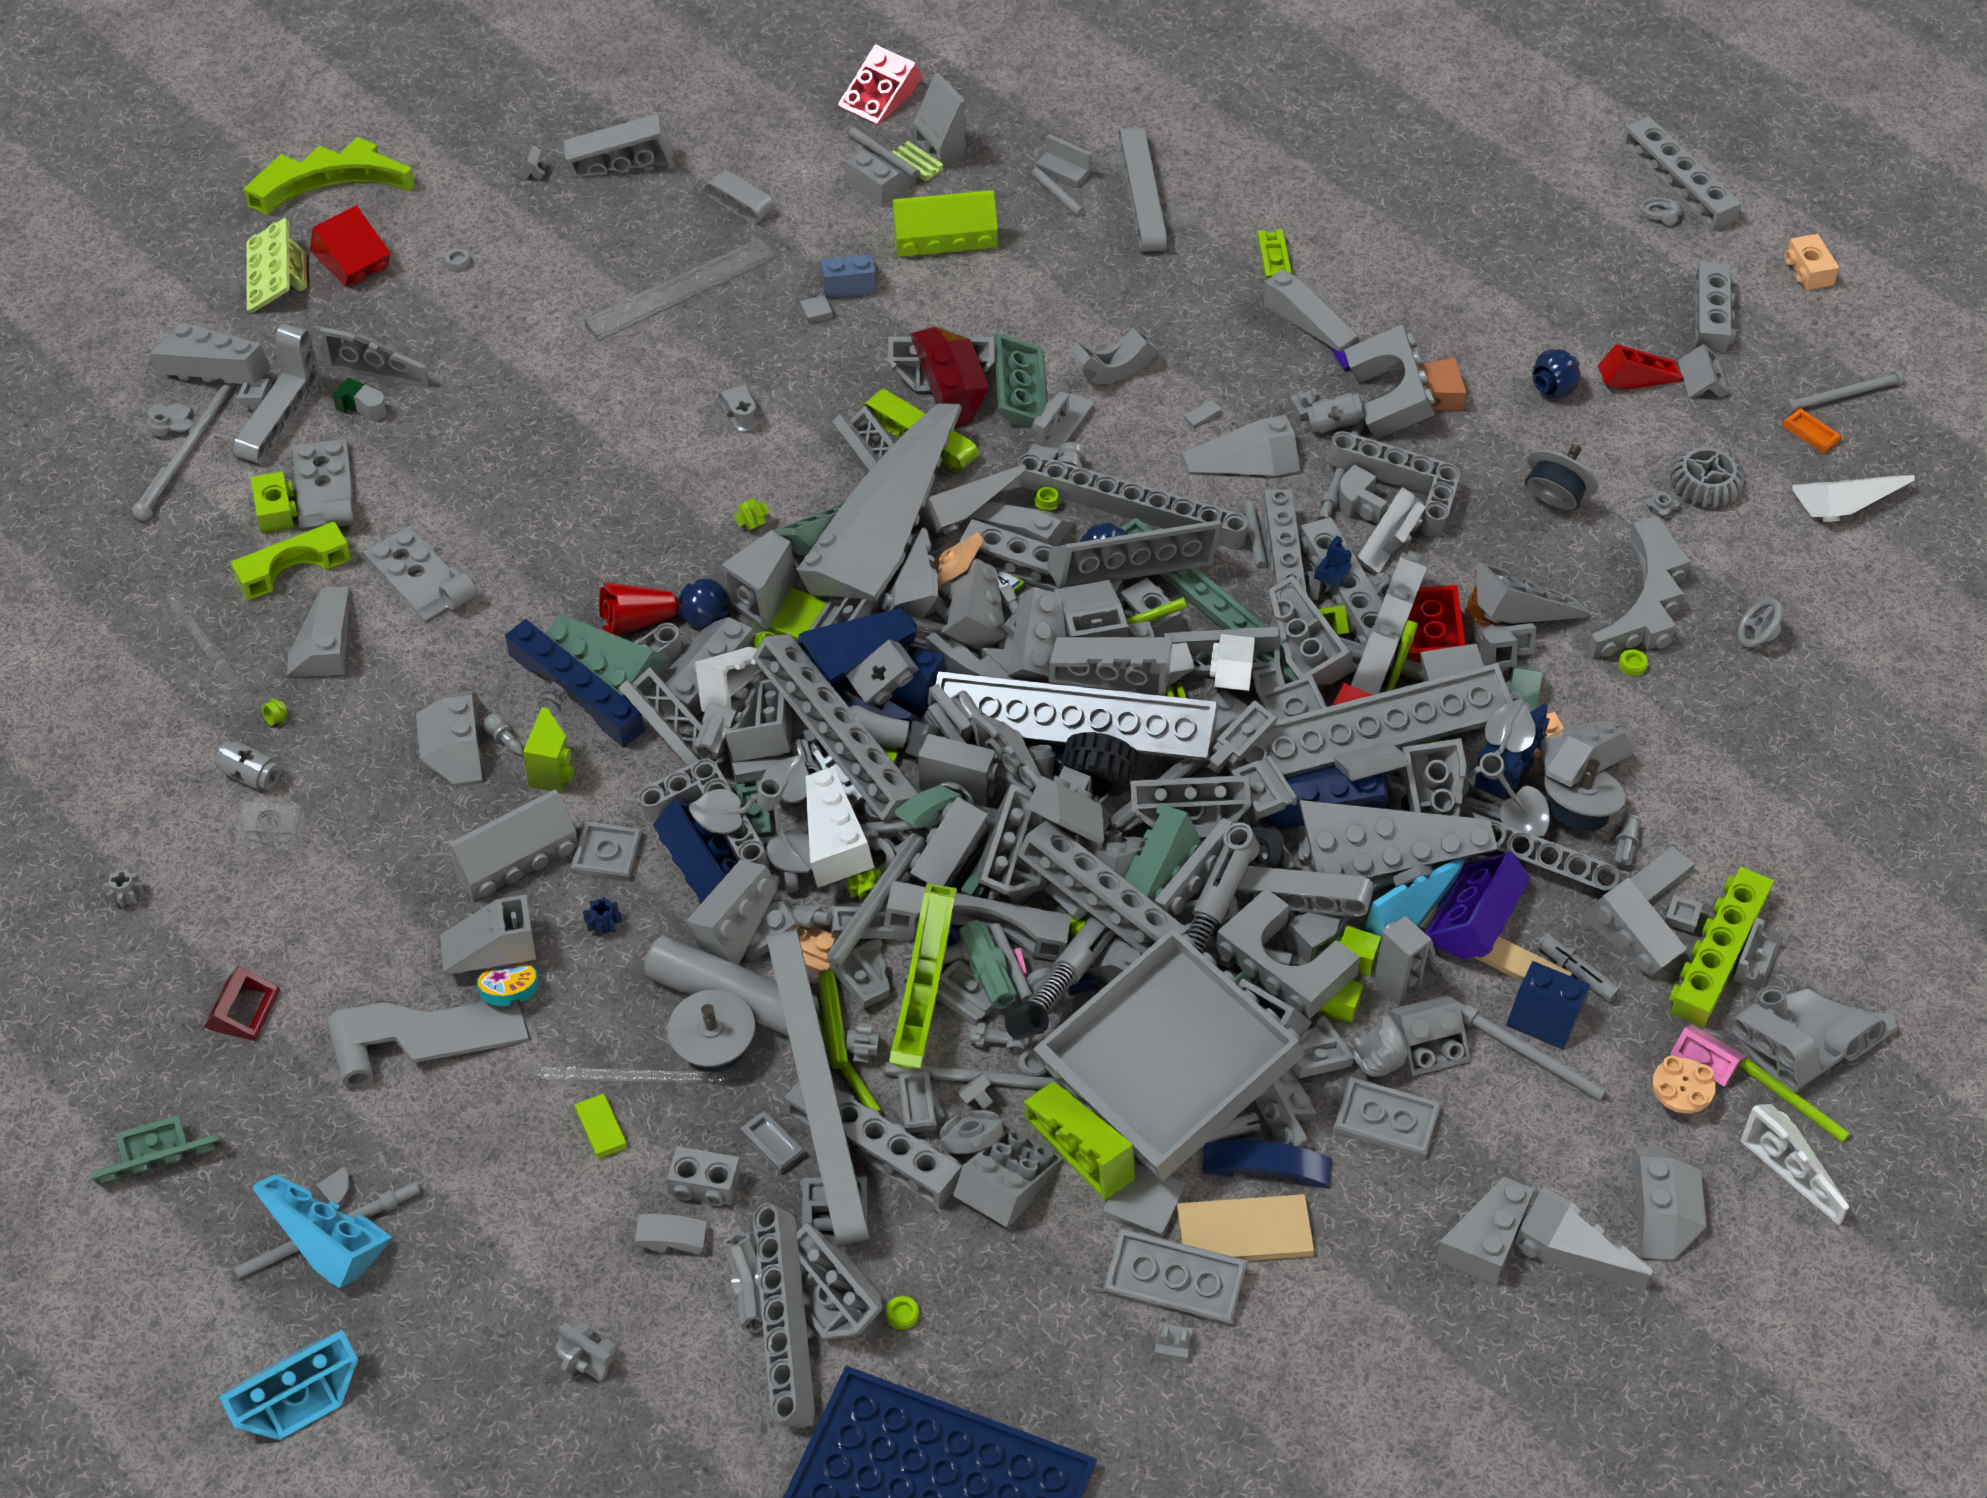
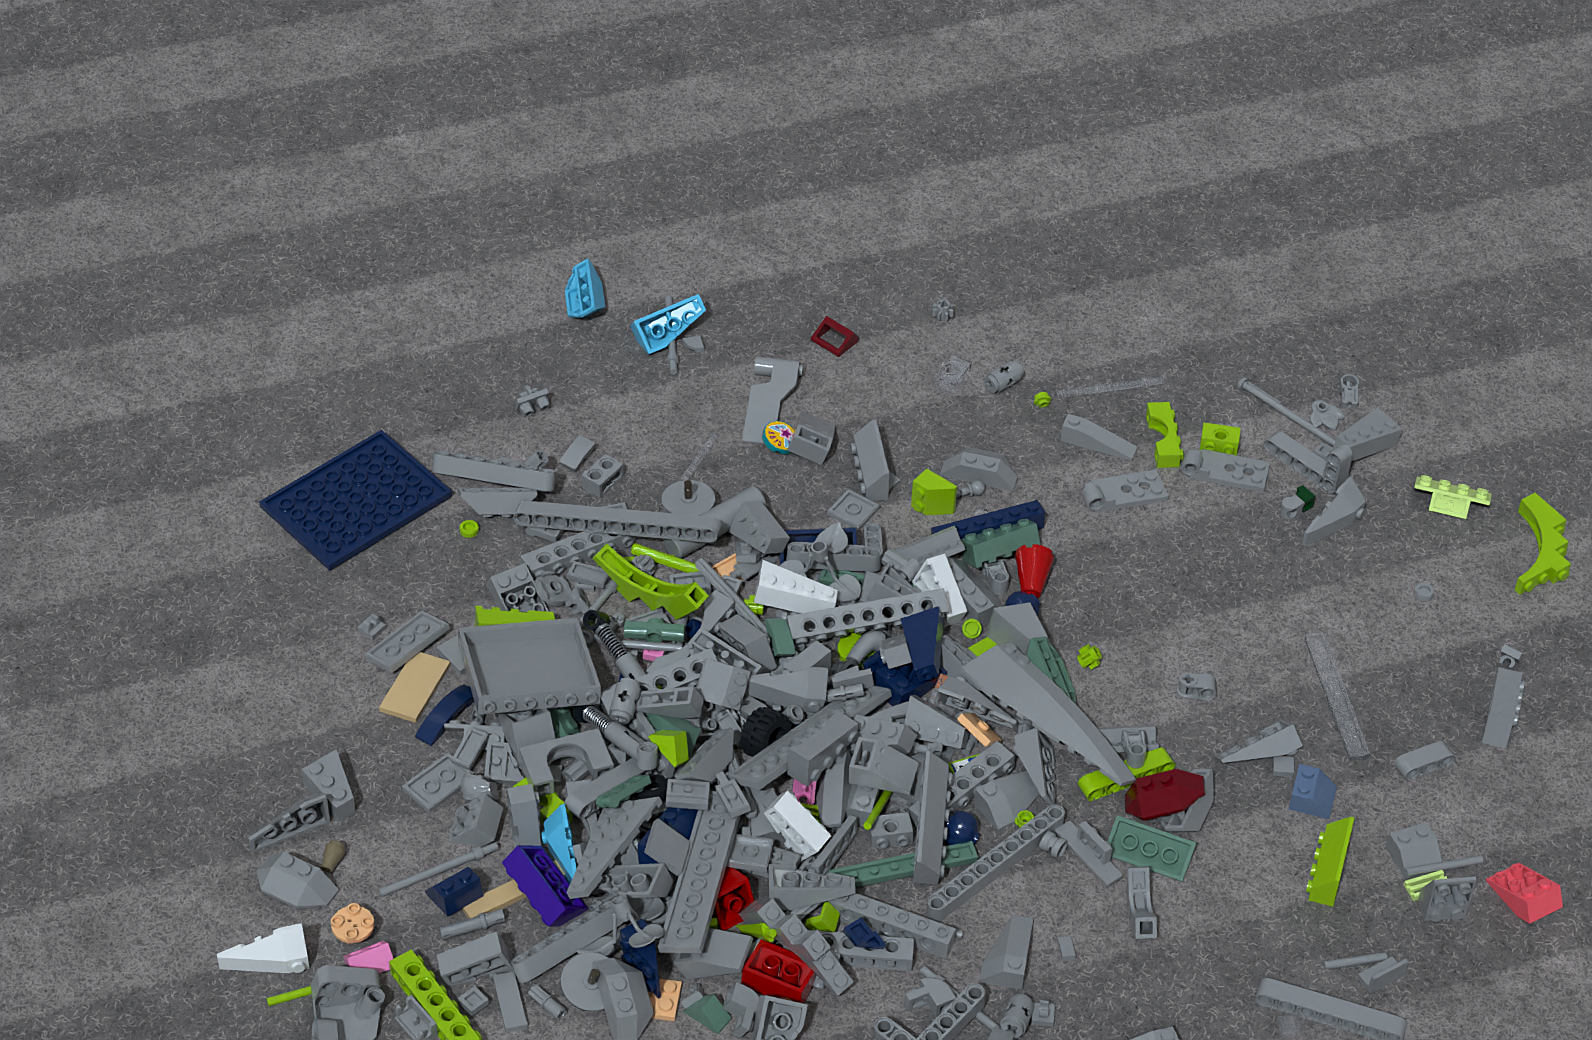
camera: 115 degrees right, 5 degrees down
(114, 404) = (1349, 394): none -> light grey piece
(151, 1144) = (761, 284): sand green bracket -> none
(349, 247) = (1451, 532): red slope -> none
(600, 1126) = (665, 450): lime tile -> none
(602, 916) = (802, 489): dark blue gear -> none
(795, 325) = (1274, 740): none -> light grey wedge
(893, 414) = (1134, 748): none -> light grey piece
(1140, 850) = (672, 702): none -> light grey slope
(1157, 901) = (624, 700): none -> light grey piece
(1208, 822) = (672, 745): none -> lime slope
(1303, 855) = (622, 791): none -> sand green plate
(1322, 1090) = (470, 748): none -> light grey tile
(1392, 530) = (889, 1001): light grey bracket -> none
(1591, 1174) = (332, 855): none -> dark tan cone

